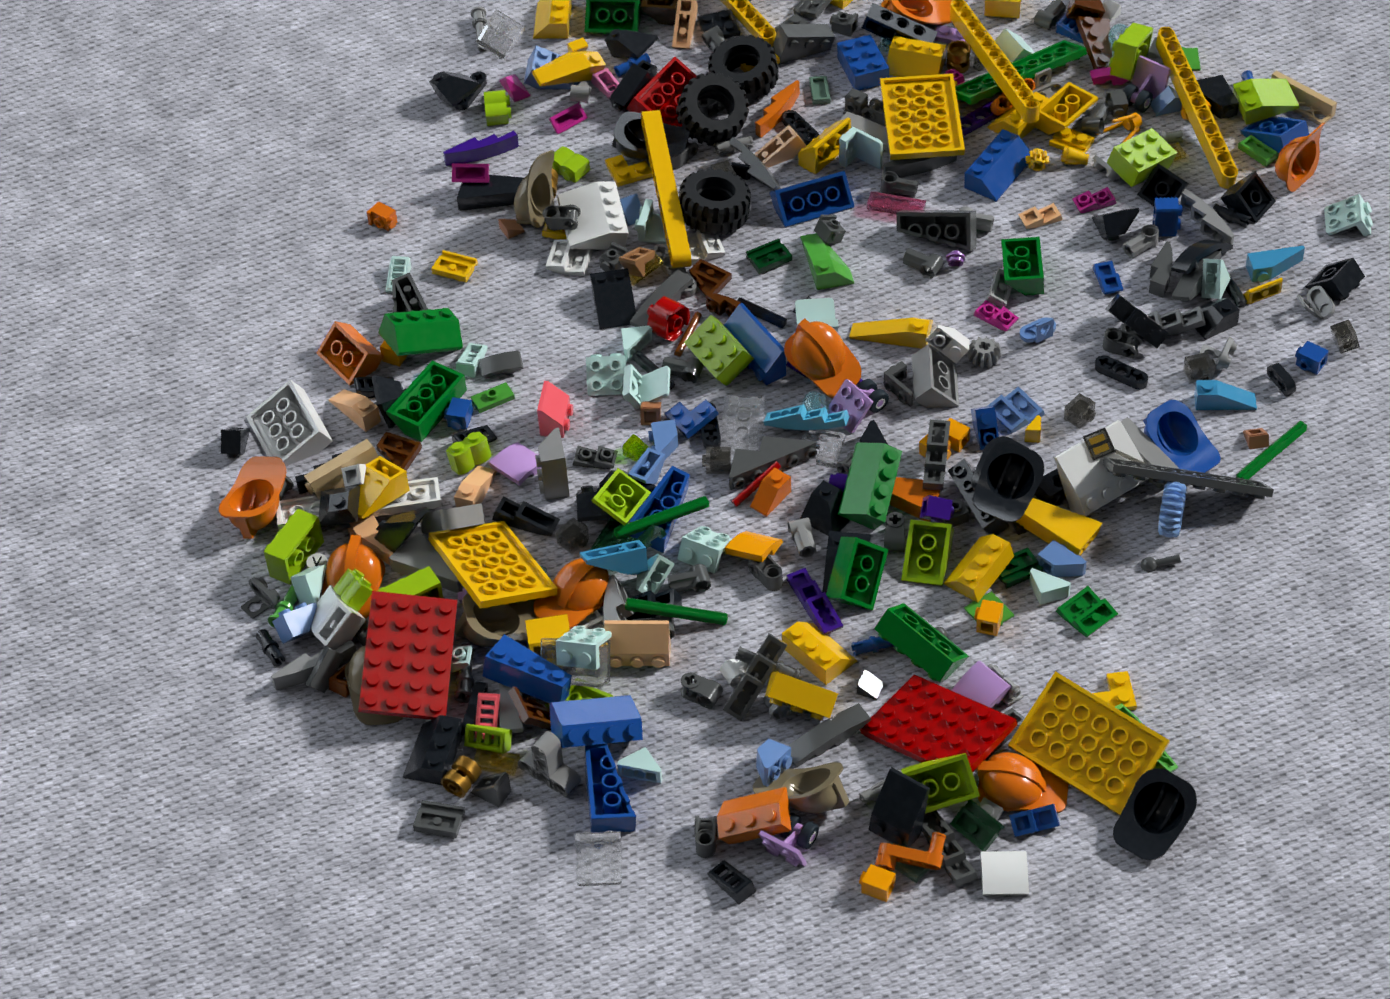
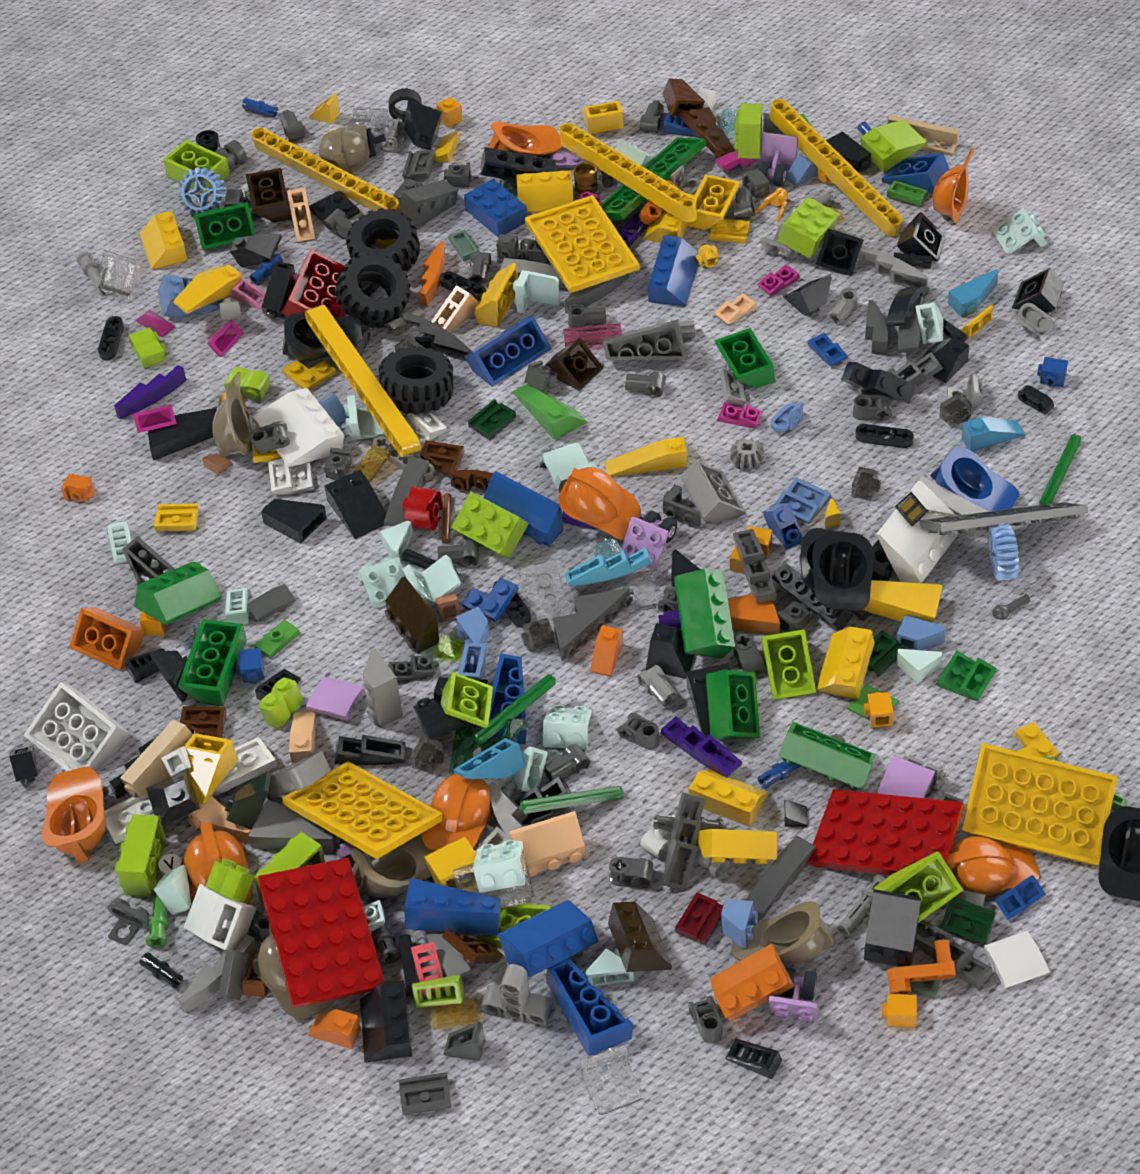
camera: 20 degrees left, 0 degrees up
(295, 623) = (179, 936): medium blue slope -> none
(357, 408) = (140, 691): light nougat slope -> none
(391, 742) = (336, 1028): none -> orange slope
(453, 87) = (94, 338): black slope -> none
(461, 776) = (429, 1041): pearl gold wheel -> none
(553, 410) = (351, 634): coral slope -> none
(554, 295) = (294, 518): none -> black slope
(577, 45) = (203, 264): yellow slope -> none
(613, 412) = (412, 616): none -> dark brown slope
(636, 260) = (365, 459): medium nougat slope -> none
(677, 747) = (637, 938): none -> dark brown slope
(740, 748) = (700, 918): none -> dark red plate
(753, 546) = (615, 710): light orange slope -> none
(754, 485) = (587, 648): red bar -> none
(764, 313) = (520, 477): black axle -> none
(824, 111) = (479, 265): none -> dark grey piece
(866, 227) = (575, 364): none -> dark brown slope
(936, 509) = (782, 618): dark purple brick -> none
(949, 342) = (713, 453): white slope -> none
(955, 258) = (675, 371): medium lavender plate -> none
(1074, 157) = (739, 244): yellow cone -> none
(1166, 216) = (858, 275): blue brick -> none
(1256, 438) = (1040, 462): nougat slope -> none
(1344, 336) = (1074, 343): clear smoke brick -> none

